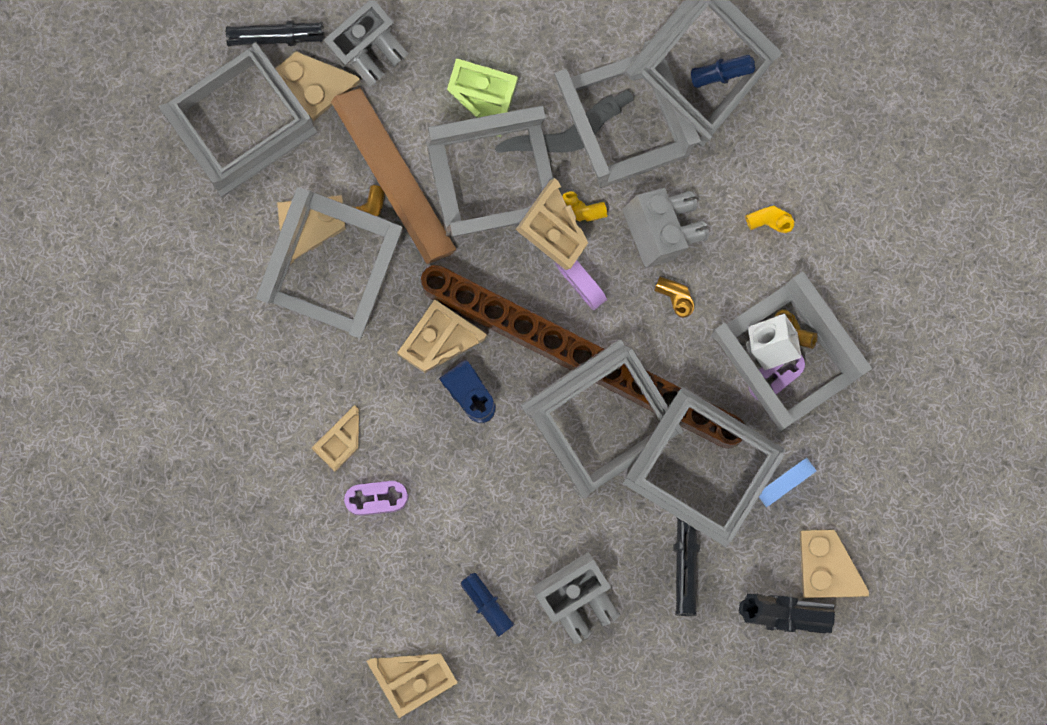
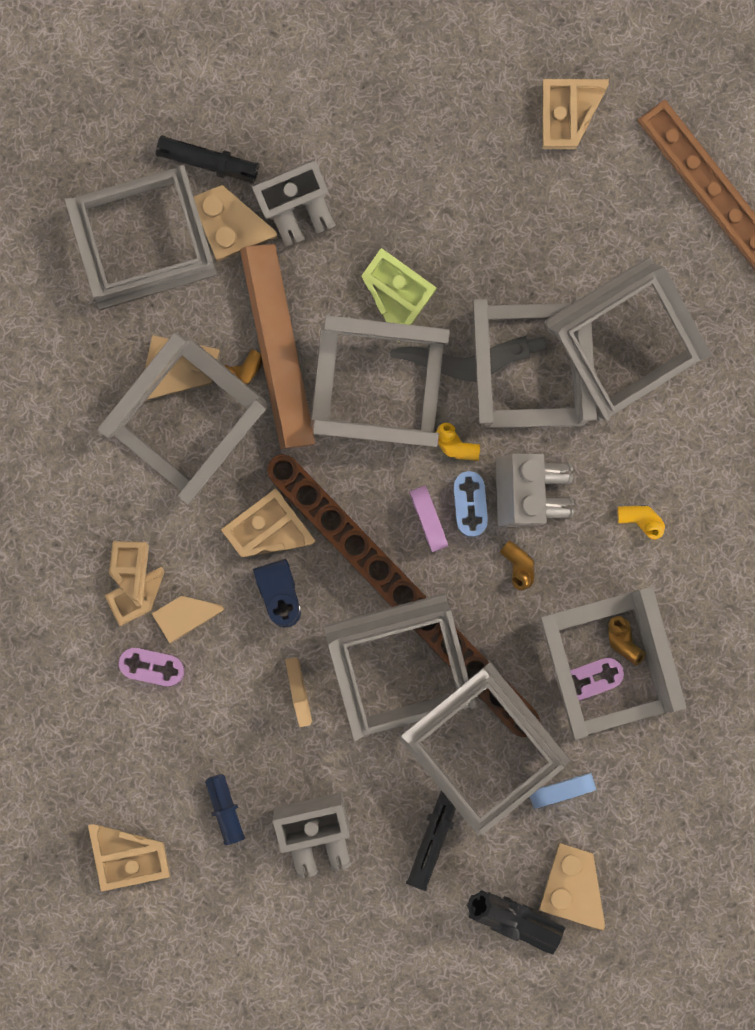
camera: 20 degrees right, 5 degrees up
(325, 415) = (129, 568): none -> tan tile
(390, 442) = (184, 616): none -> tan tile
(518, 475) = (298, 692): none -> tan tile
(554, 227) = (417, 457): tan wing -> none
(620, 253) = (462, 505): none -> light blue beam
(722, 71) = (646, 351): dark blue axle -> none
(773, 342) = (598, 647): white brick -> none

